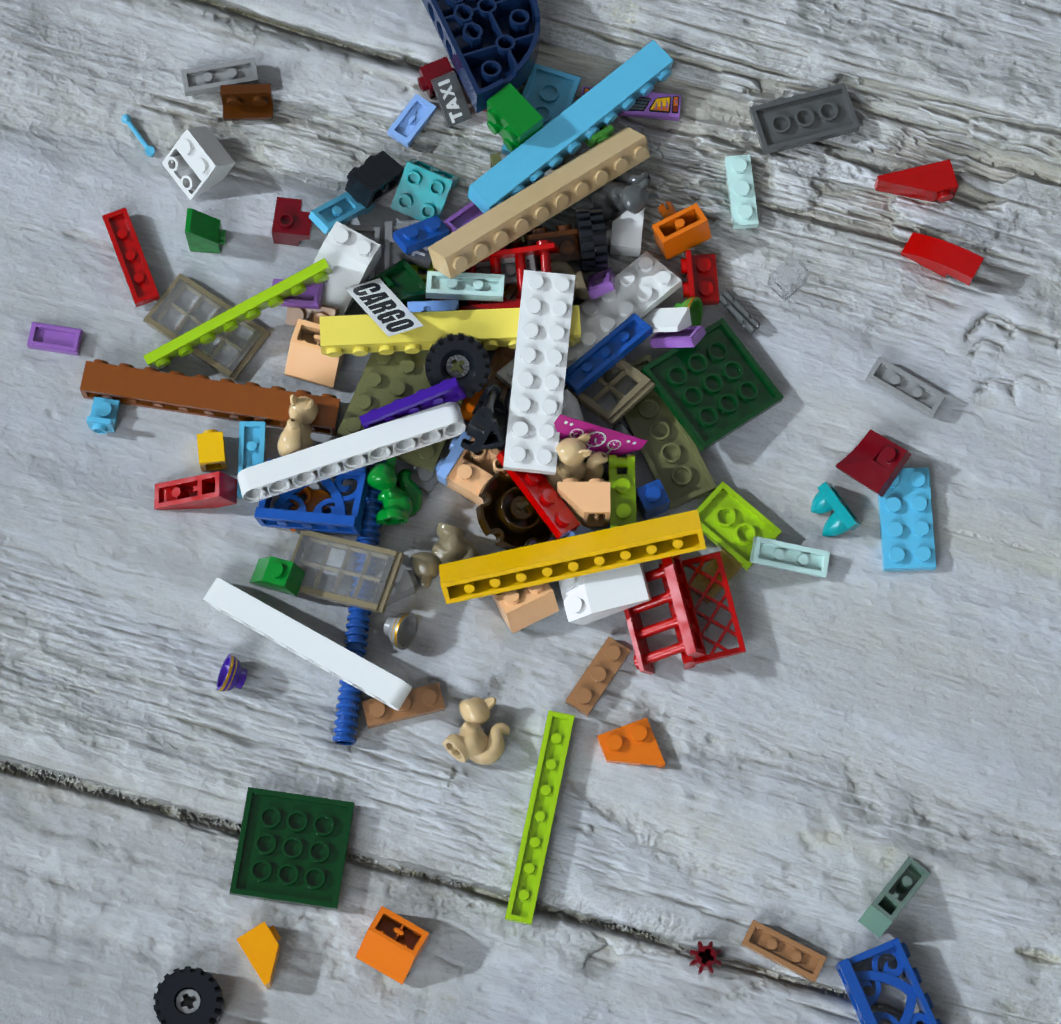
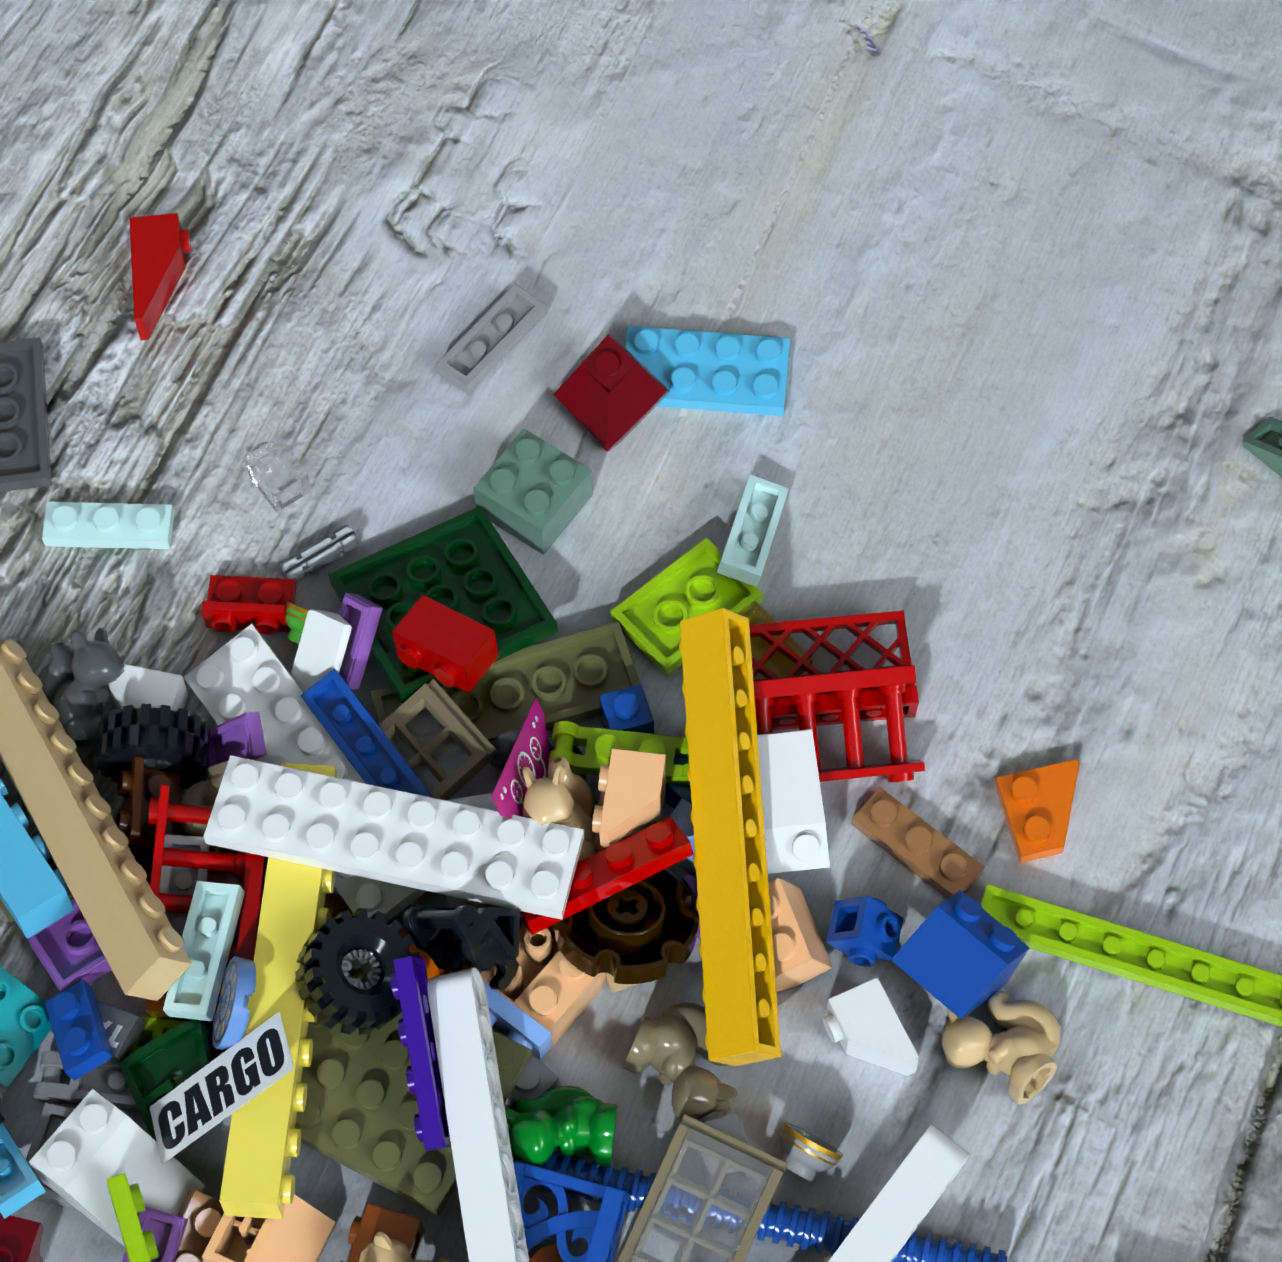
camera: 80 degrees left, 10 degrees down
(419, 702) = (953, 1211): medium nougat plate -> none
(478, 657) = (870, 1028): none -> white slope
(523, 700) = (961, 954): none -> blue slope
(534, 647) = (864, 930): none -> blue brick
(674, 384) = (445, 644): none -> red brick
(680, 229) = (161, 616): orange brick -> none
(797, 426) = (534, 491): none -> sand green brick
(840, 520) = (697, 455): teal tile -> none
(943, 257) = (287, 256): red slope -> none

